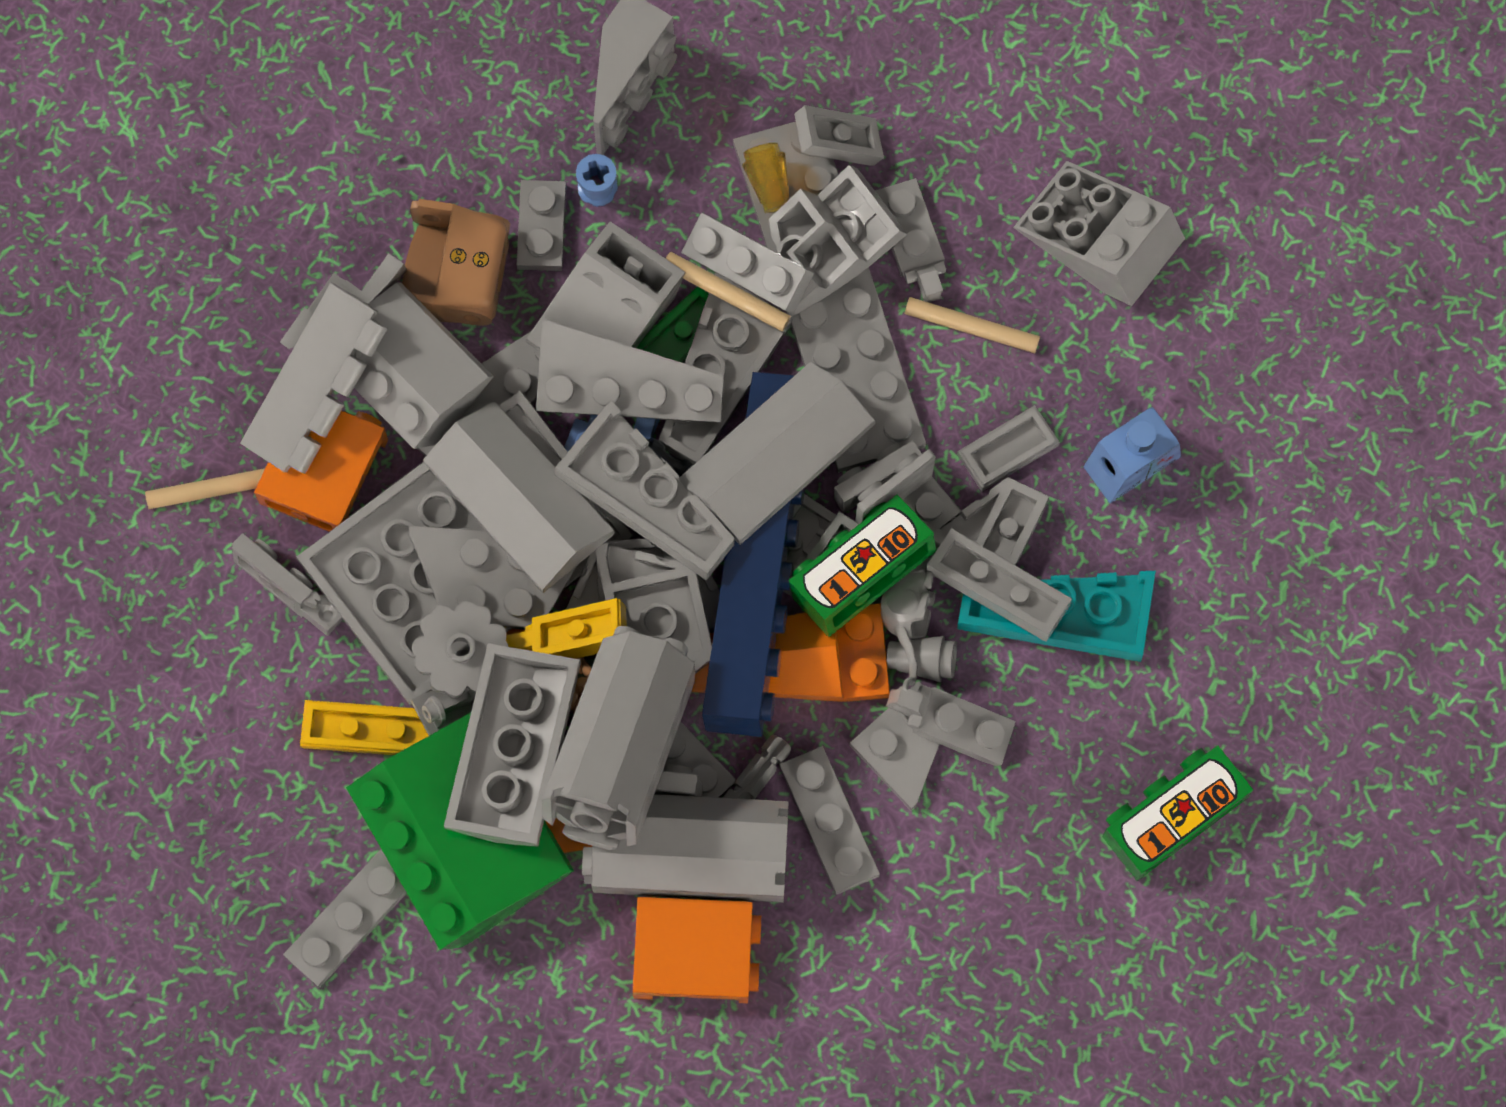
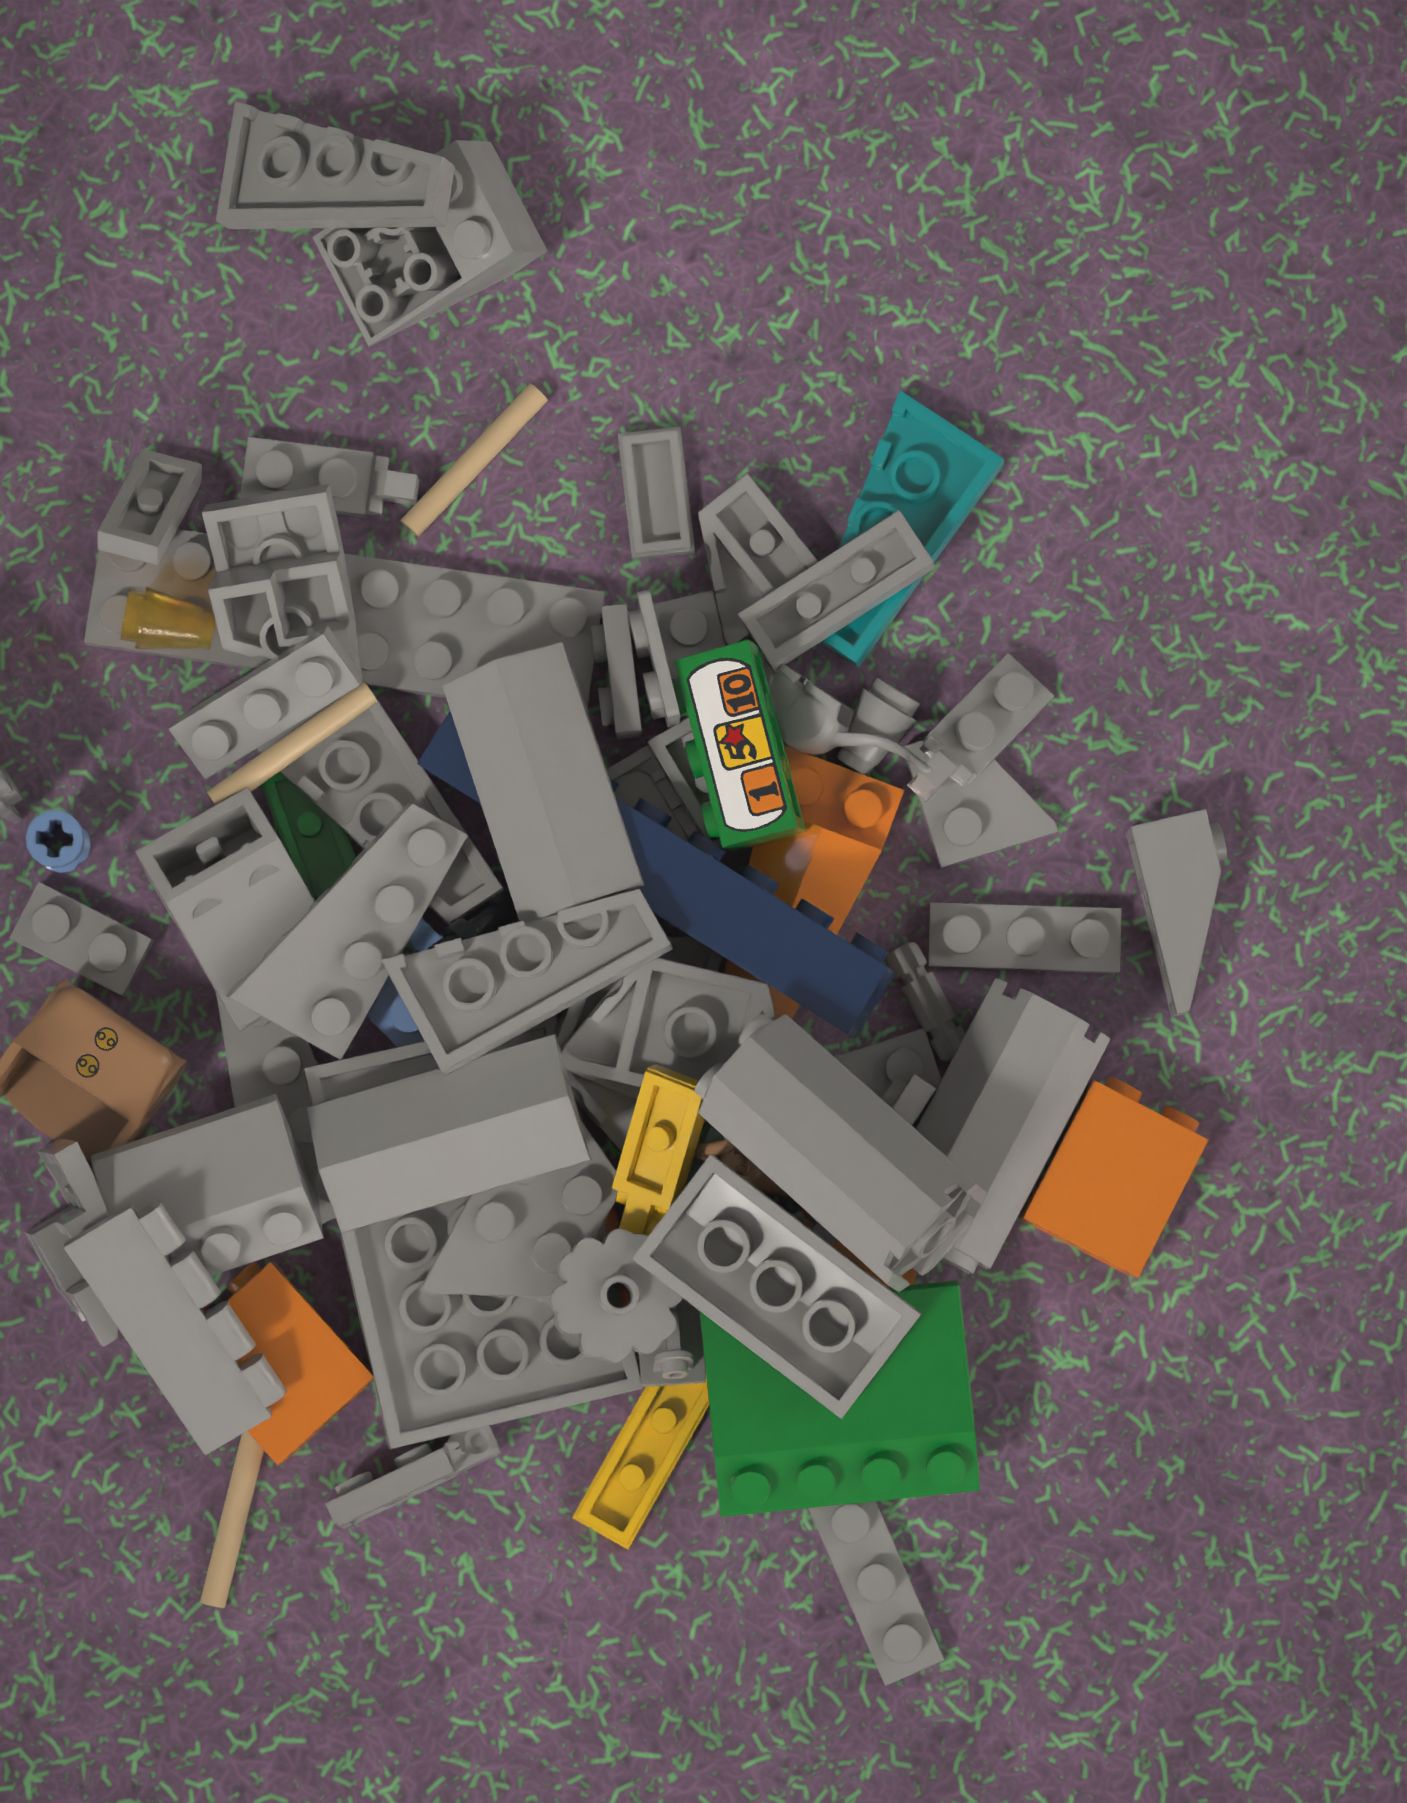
camera: 65 degrees left, 10 degrees up
(910, 905) = (1178, 886): none -> light grey slope
(1105, 143) = (321, 177): none -> light grey wing
(1135, 453) = (745, 346): medium blue torso -> none
(1175, 811) = (1212, 513): brick -> none

